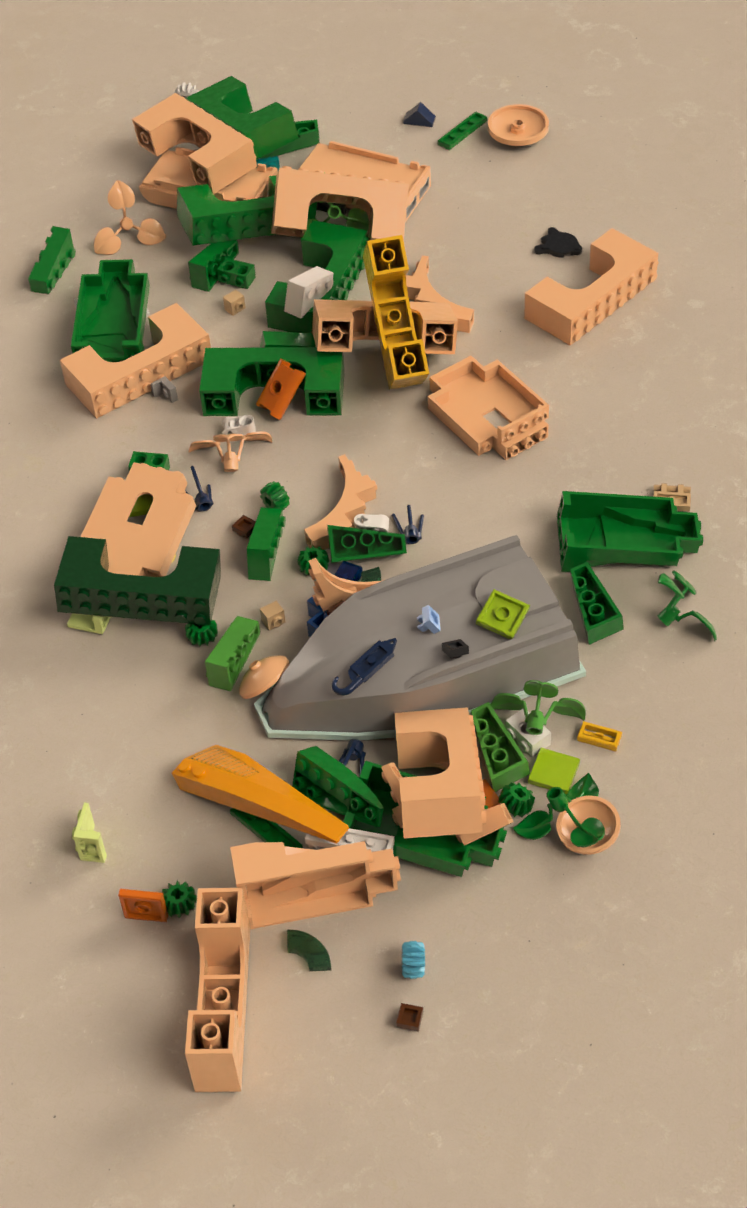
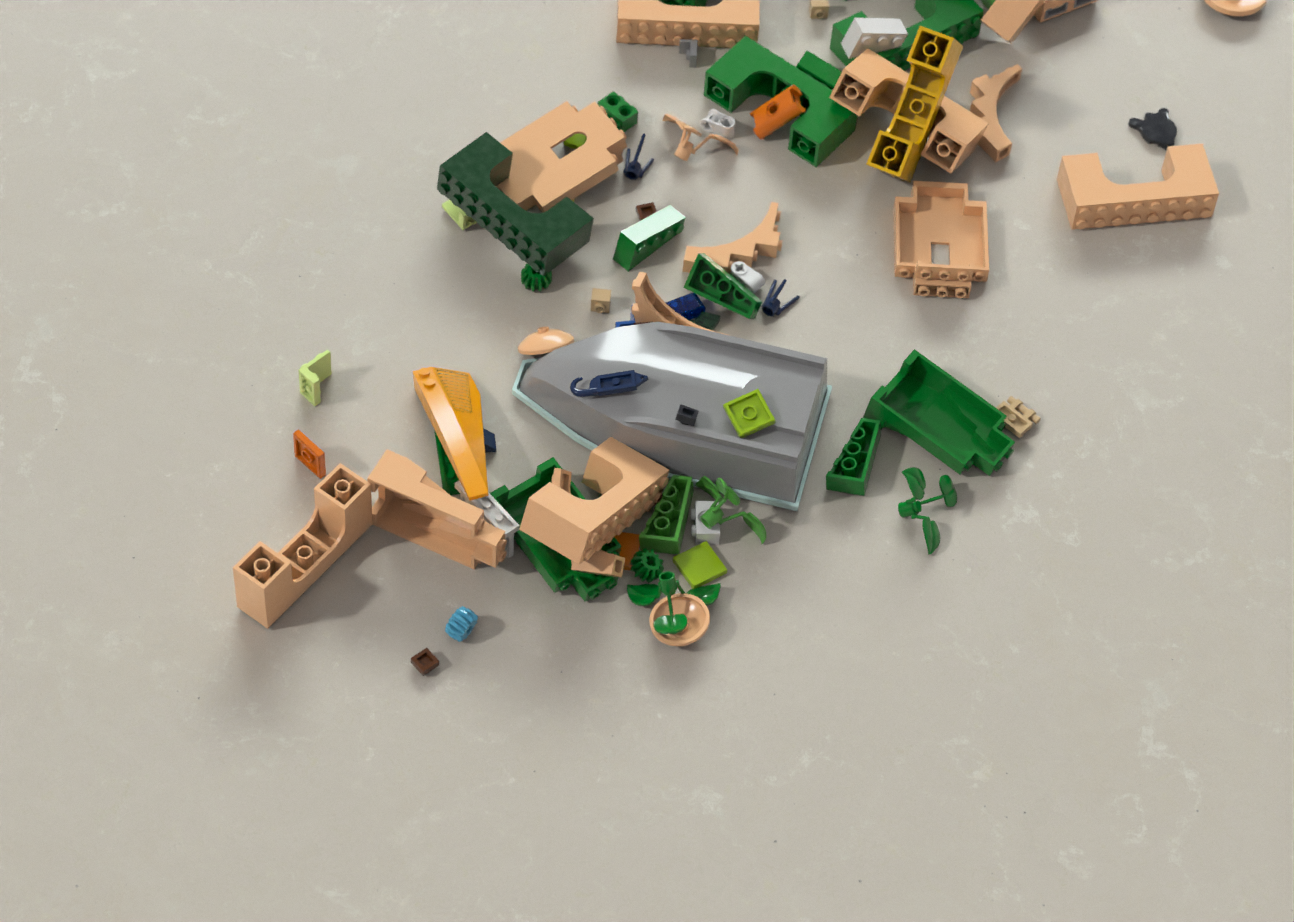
camera: 30 degrees right, 5 degrees up
(179, 899) = (336, 459): green gear -> none
(231, 653) = (541, 309): bright green wedge -> none
(274, 496) = (690, 203): green gear -> none
(309, 554) = (672, 277): green gear -> none
(310, 949) = (400, 567): clear green tile -> none
(335, 786) = (518, 459): green wedge -> none
(353, 752) = (562, 447): dark blue plant -> none
(429, 619) = (687, 380): light blue tile -> none
(598, 738) = (768, 576): yellow tile -> none

